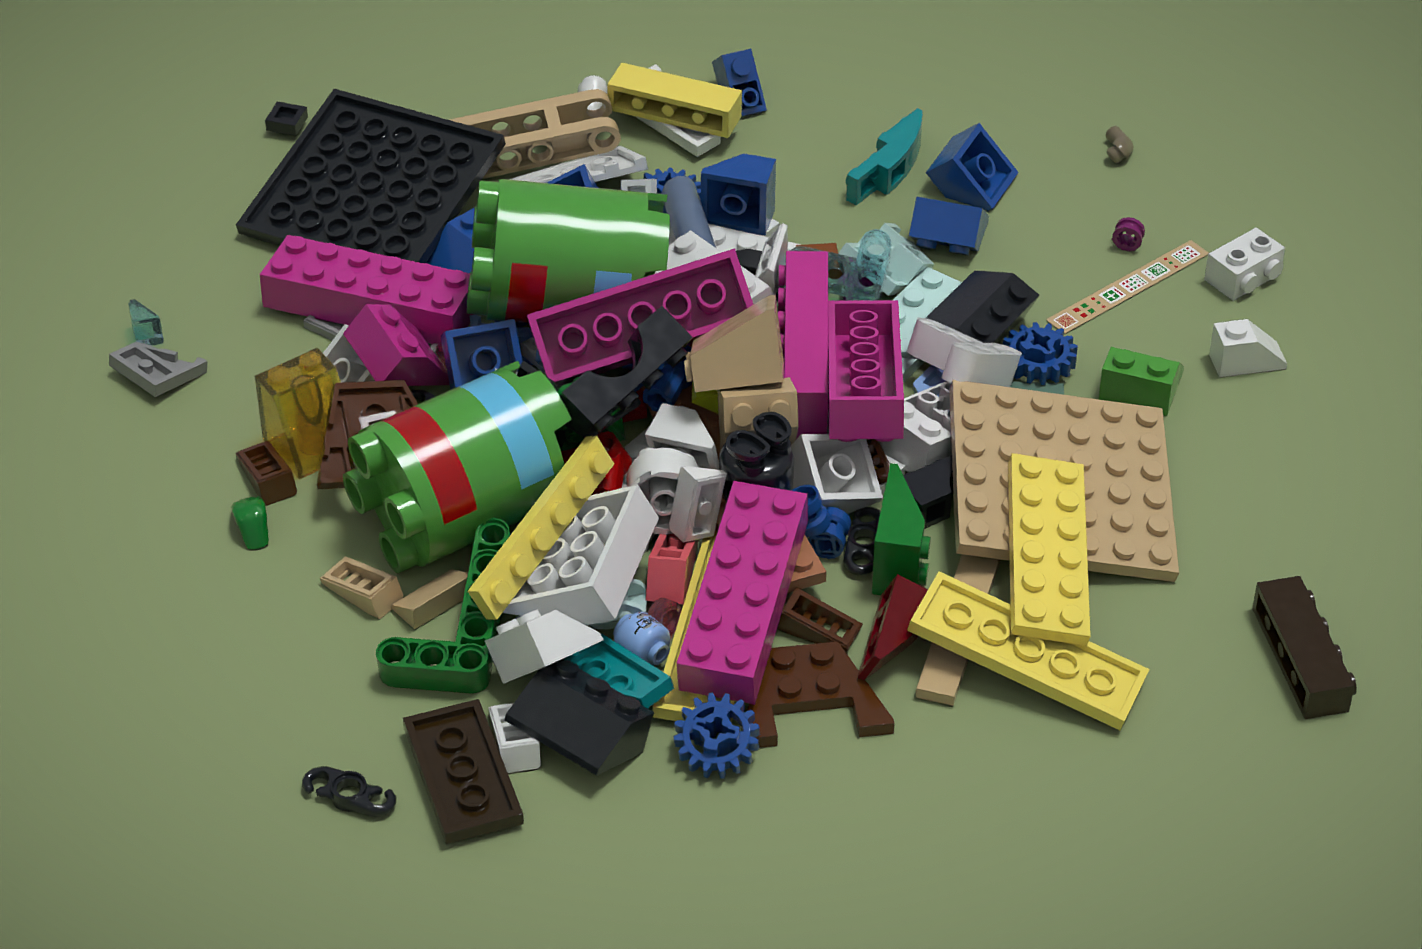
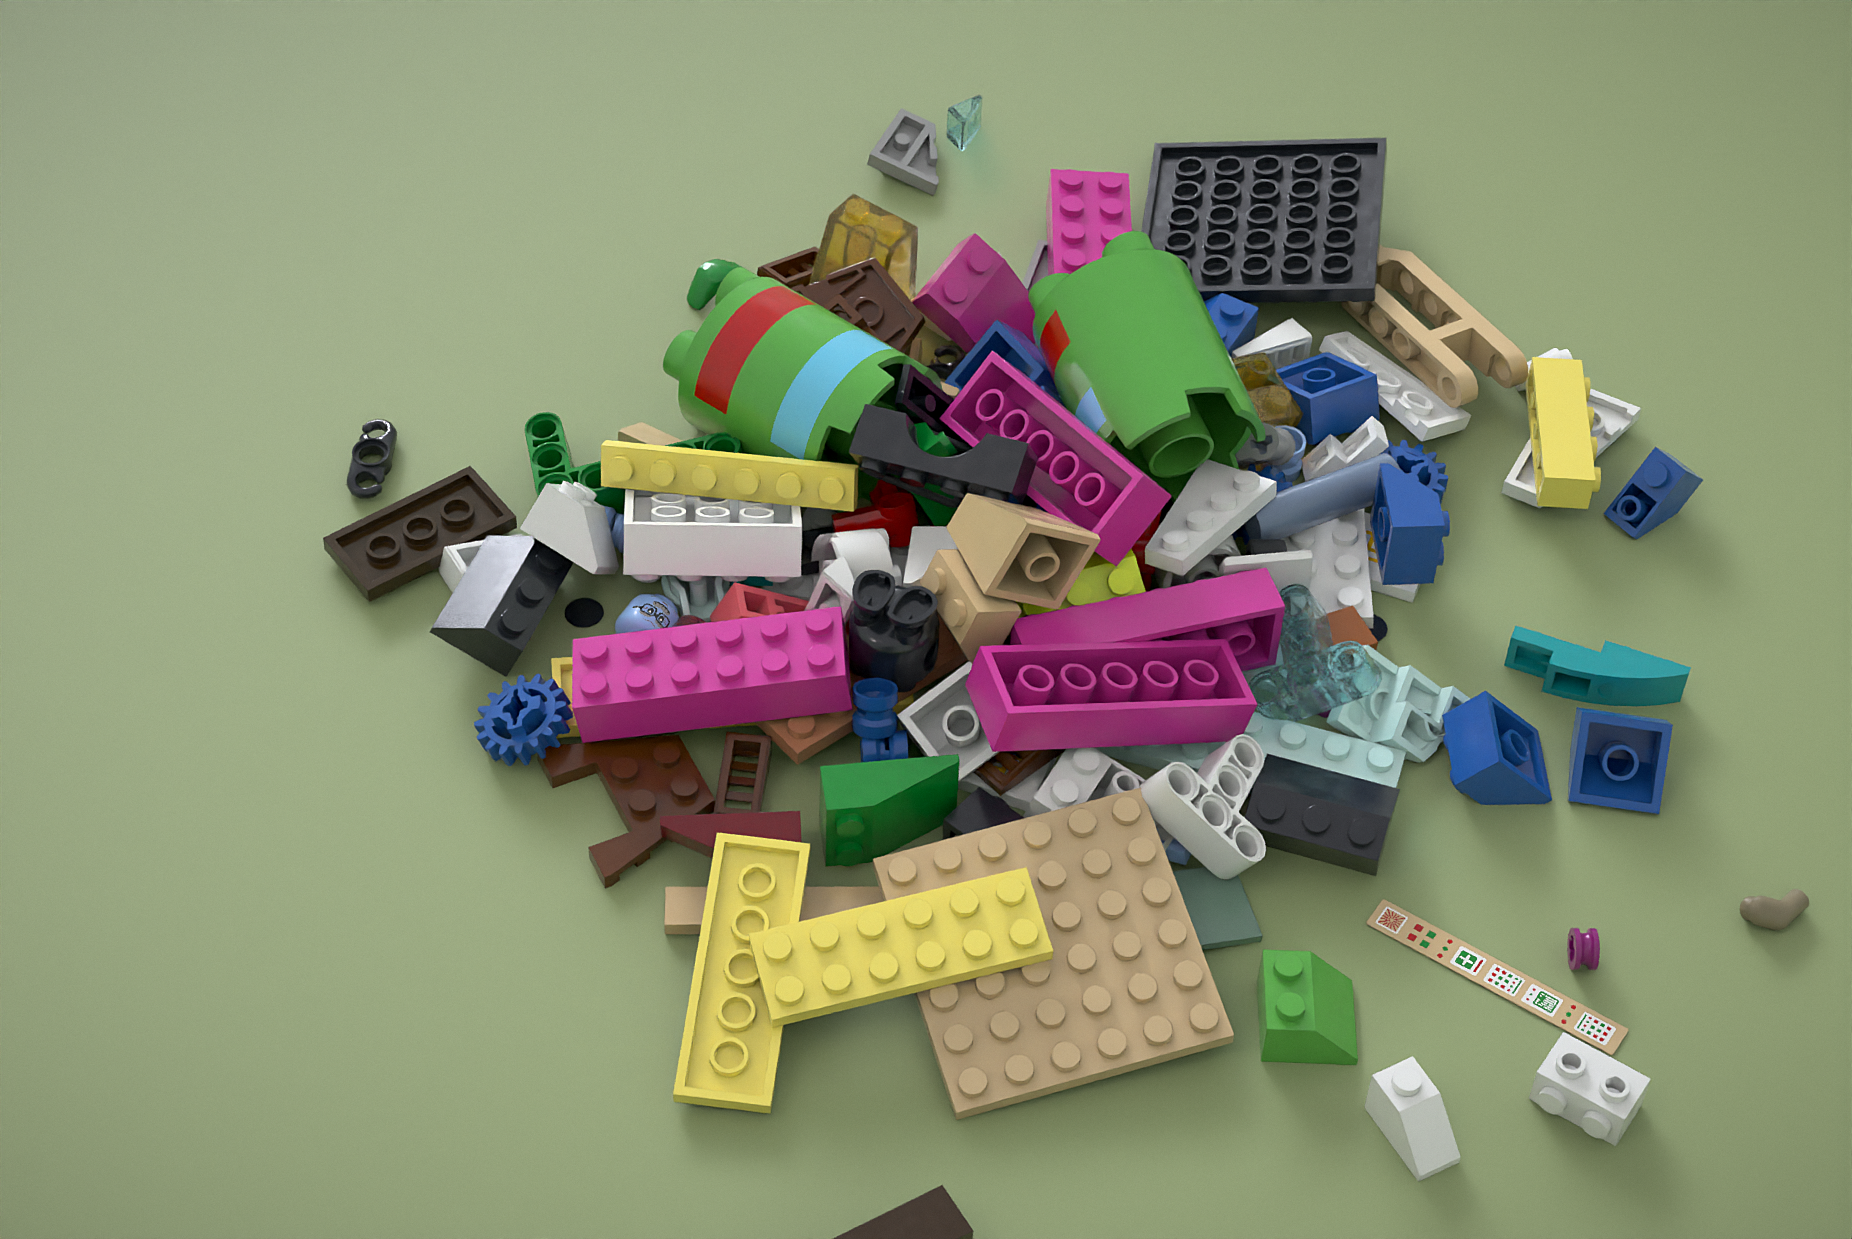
camera: 70 degrees right, 5 degrees up
(286, 118) = (1357, 127): black plate -> none
(366, 587) = (651, 398): tan slope -> none
(623, 671) = (584, 609): teal wing -> none
(1044, 352) = (1293, 894): blue gear -> none

